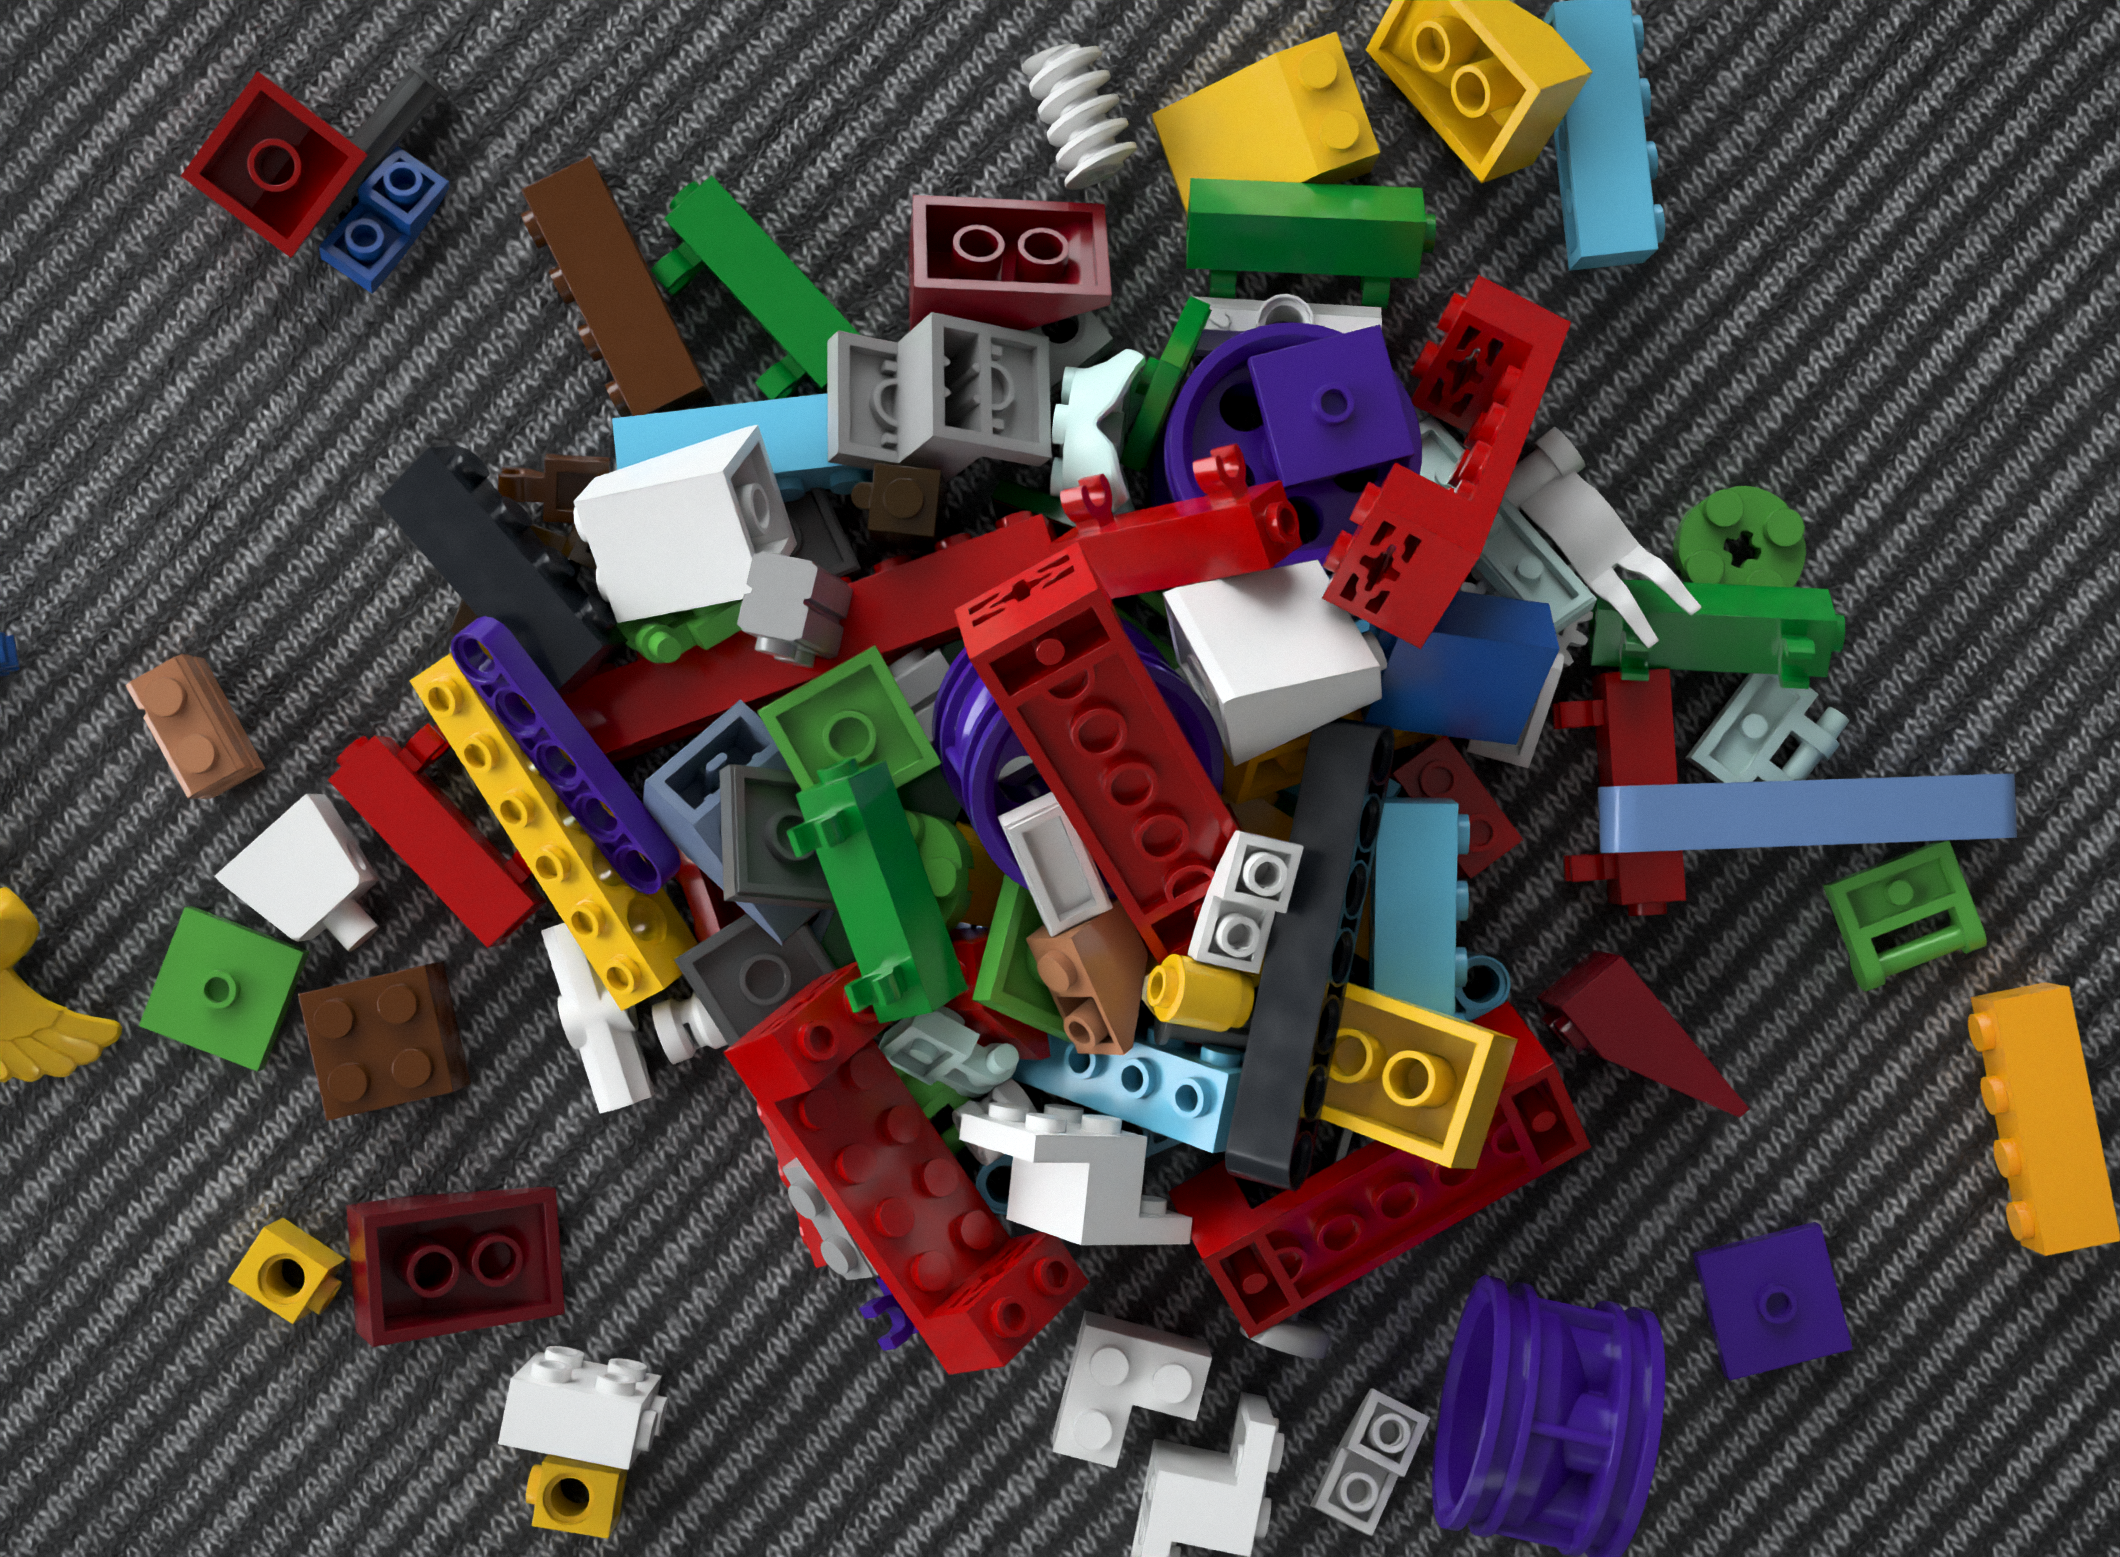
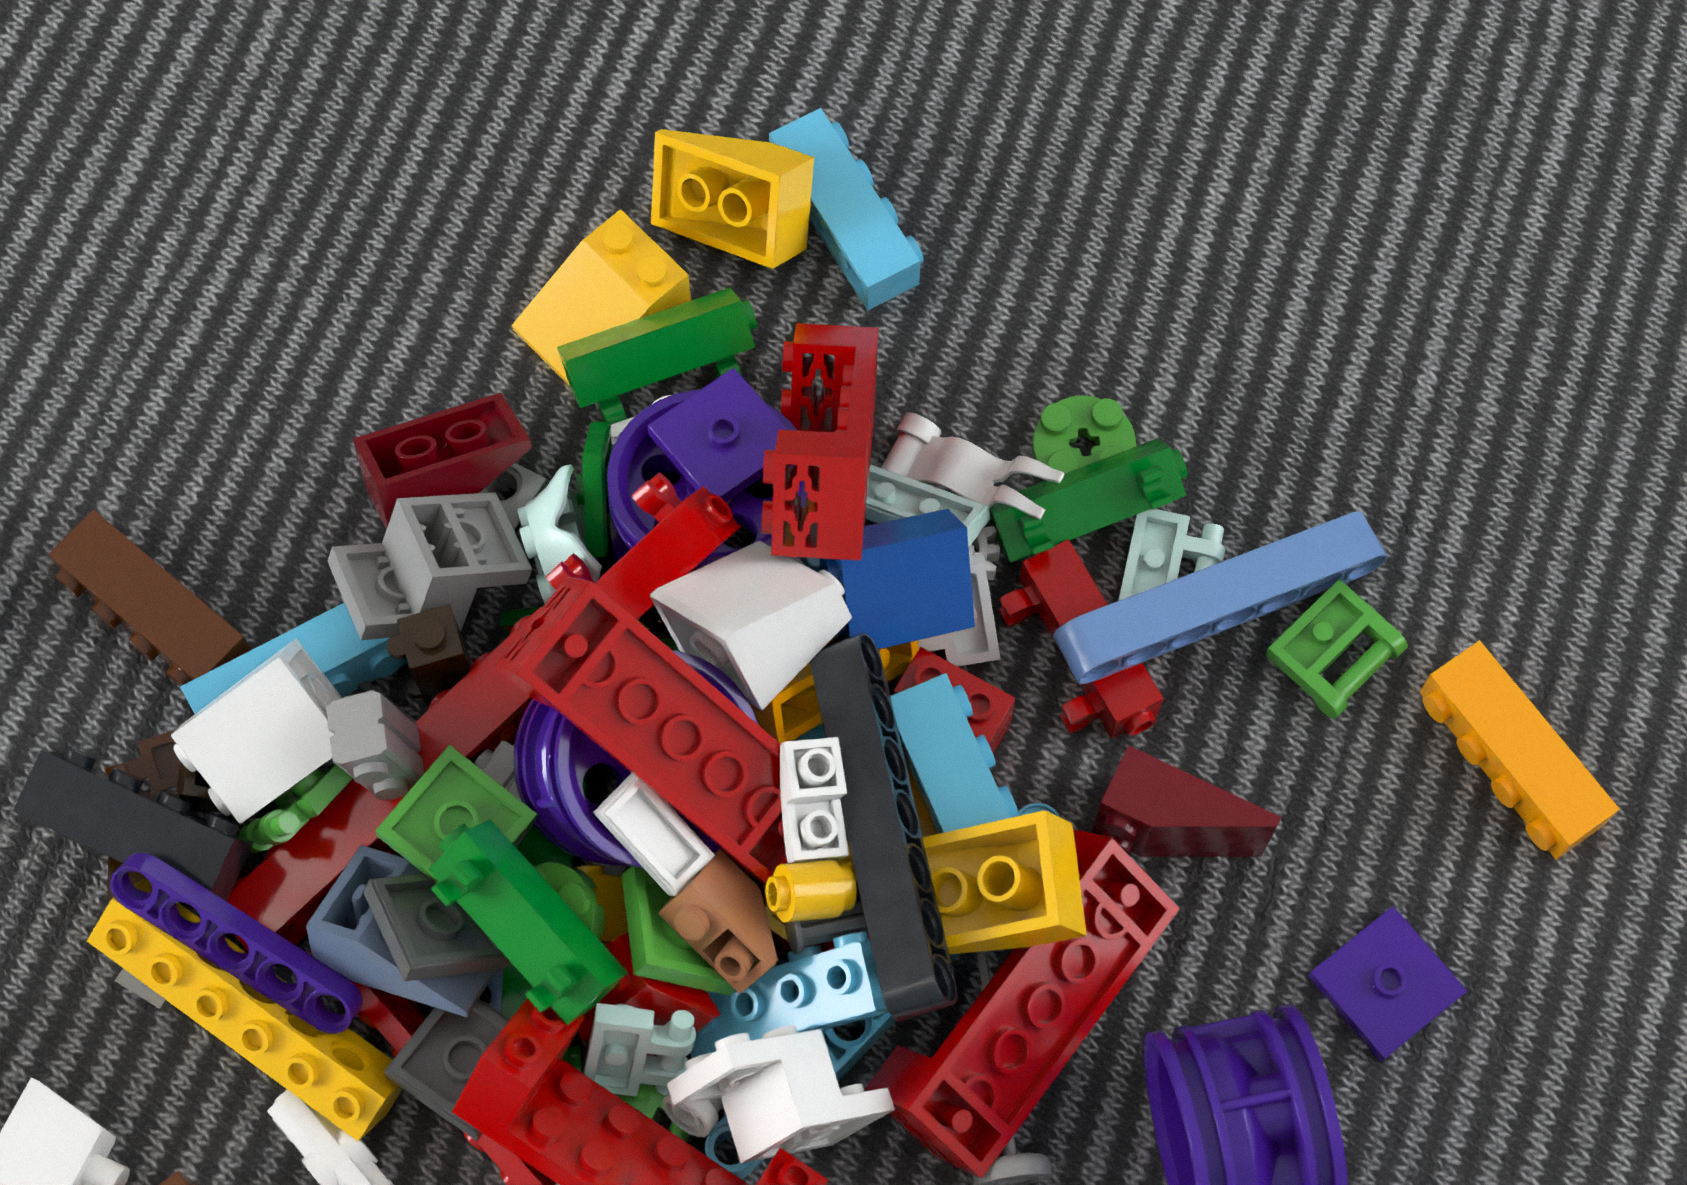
camera: 20 degrees left, 20 degrees down
(435, 835) = (152, 1074): red brick -> none
(684, 1028) = (435, 1129): white wheel -> none
(759, 277) = (255, 548): green brick -> none
(1078, 113) = (456, 341): white piece -> none

